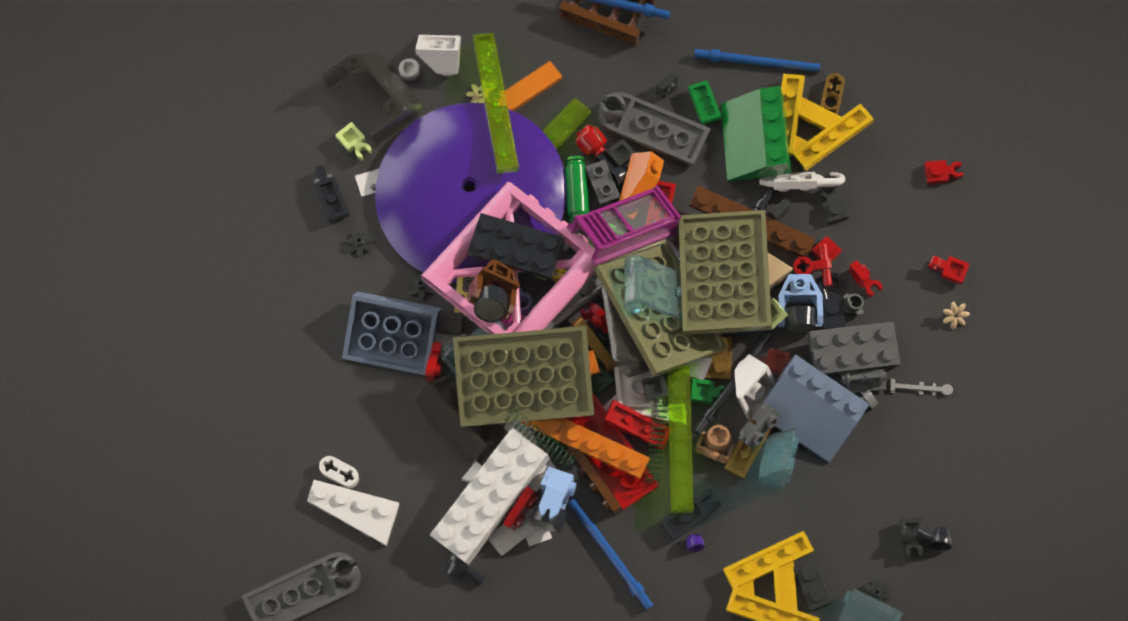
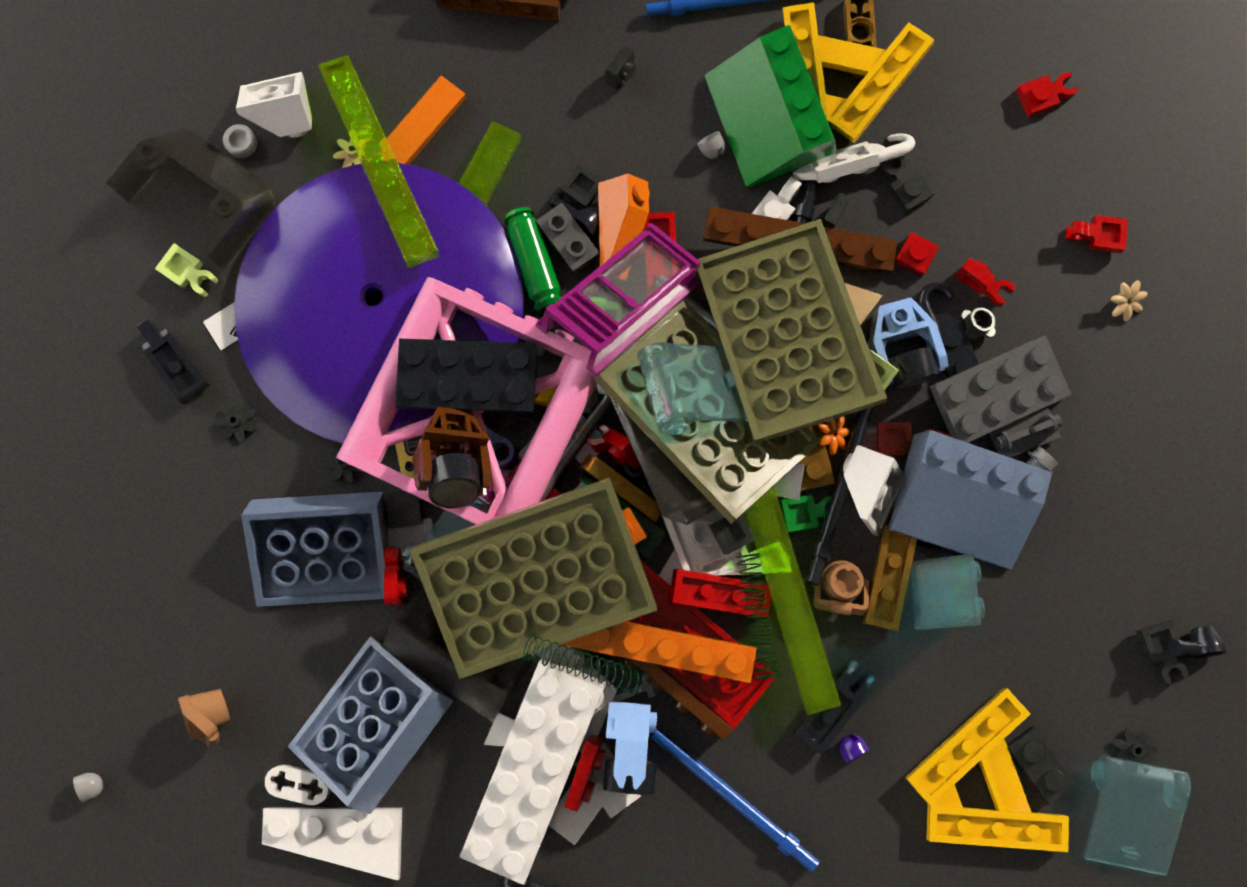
camera: 15 degrees left, 10 degrees up
(209, 437) = (87, 786): none -> light grey hinge
(293, 412) = (204, 714): none -> medium nougat piece
(394, 447) = (369, 726): none -> sand blue slope
(591, 140) = (533, 179): red head -> none
(653, 127) = (616, 135): dark grey plate -> none
(704, 102) = (681, 80): green plate -> none
(712, 149) = (712, 145): none -> light grey hinge
(738, 347) = (833, 434): none -> orange plant
(746, 197) = (779, 206): none -> white plate
(754, 434) = (897, 562): dark grey hinge -> none
(823, 265) = (923, 276): red piece -> none
(946, 390) = (1143, 414): light grey piece -> none

